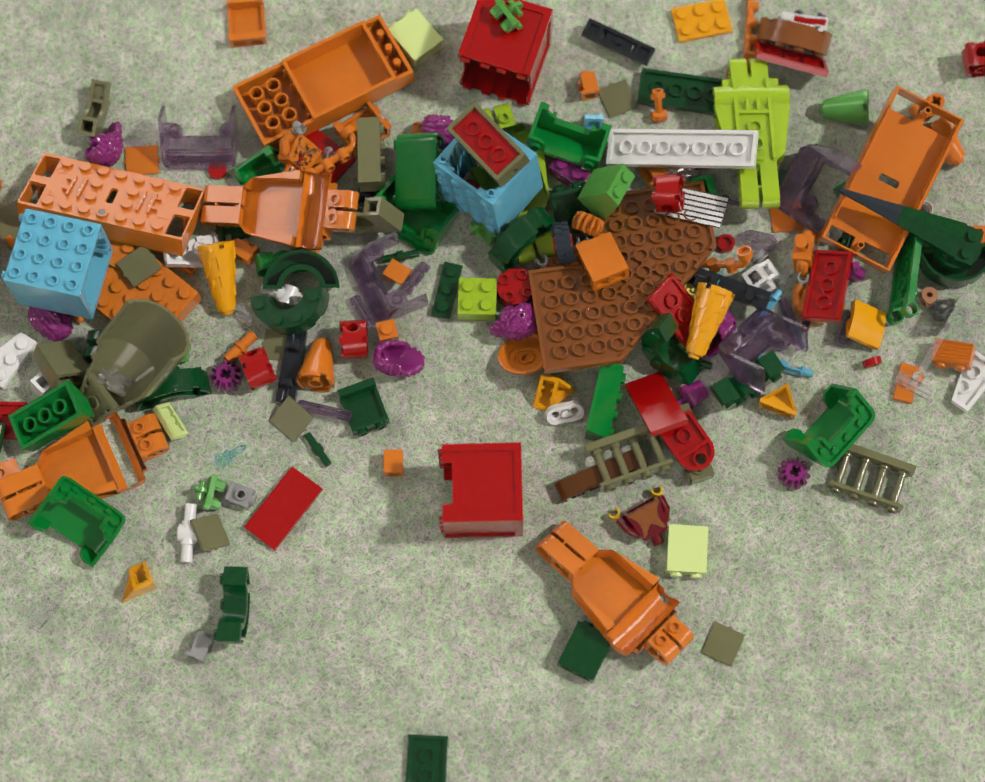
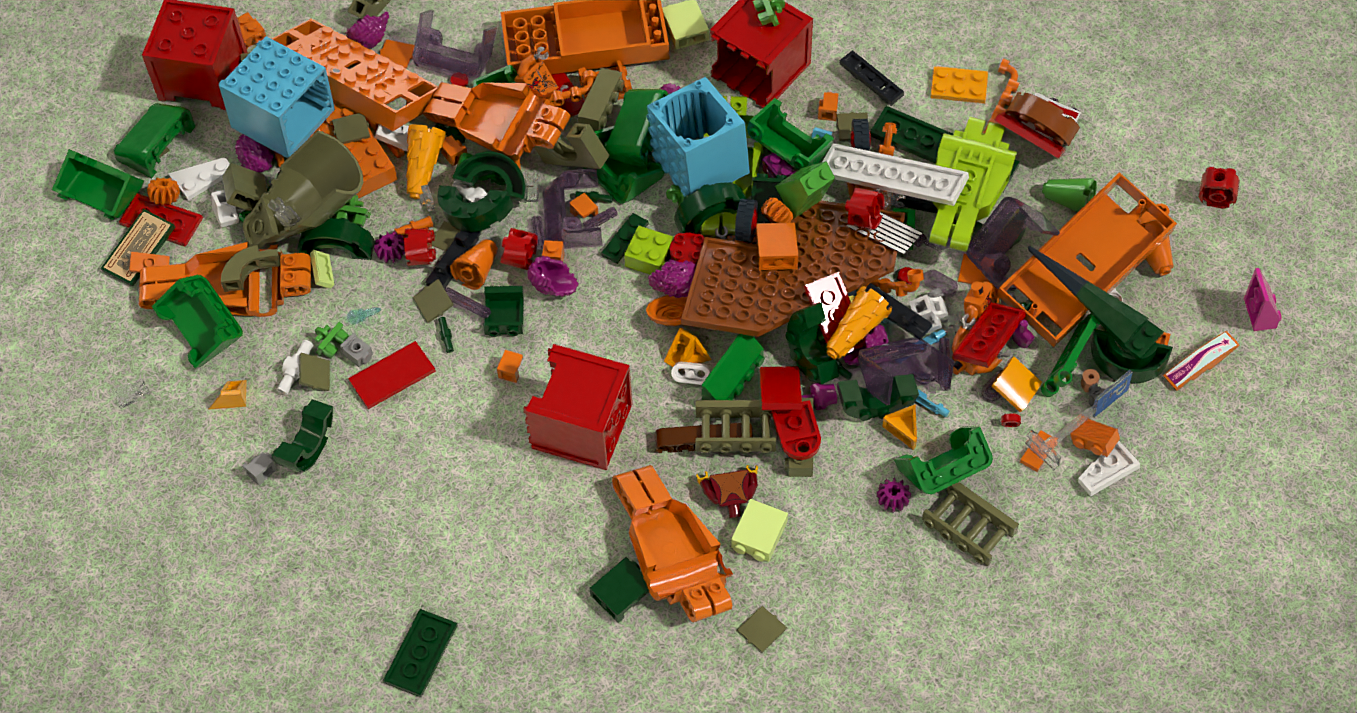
camera: 20 degrees right, 15 degrees down
(50, 416) = (215, 227): green slope -> none
(95, 444) = (244, 263): none -> olive arch
(488, 144) = (701, 98): red brick -> none
(633, 112) = (860, 134): none -> black wheel

